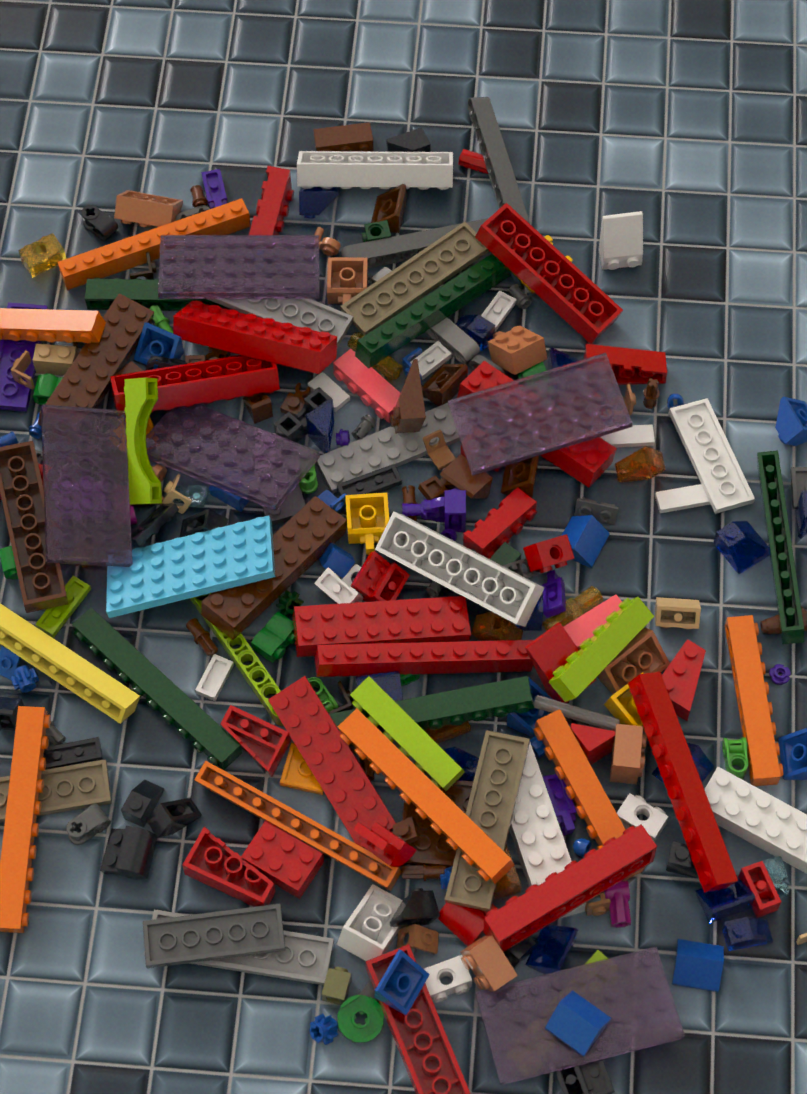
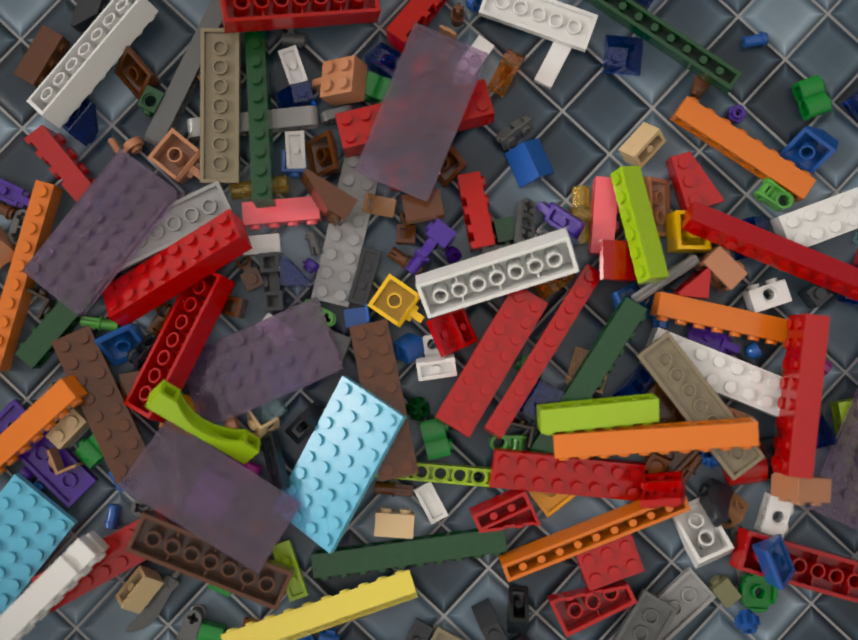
camera: 55 degrees left, 25 degrees up
(172, 657) = (394, 523): none -> tan brick
(548, 553) = (529, 197): red brick -> none

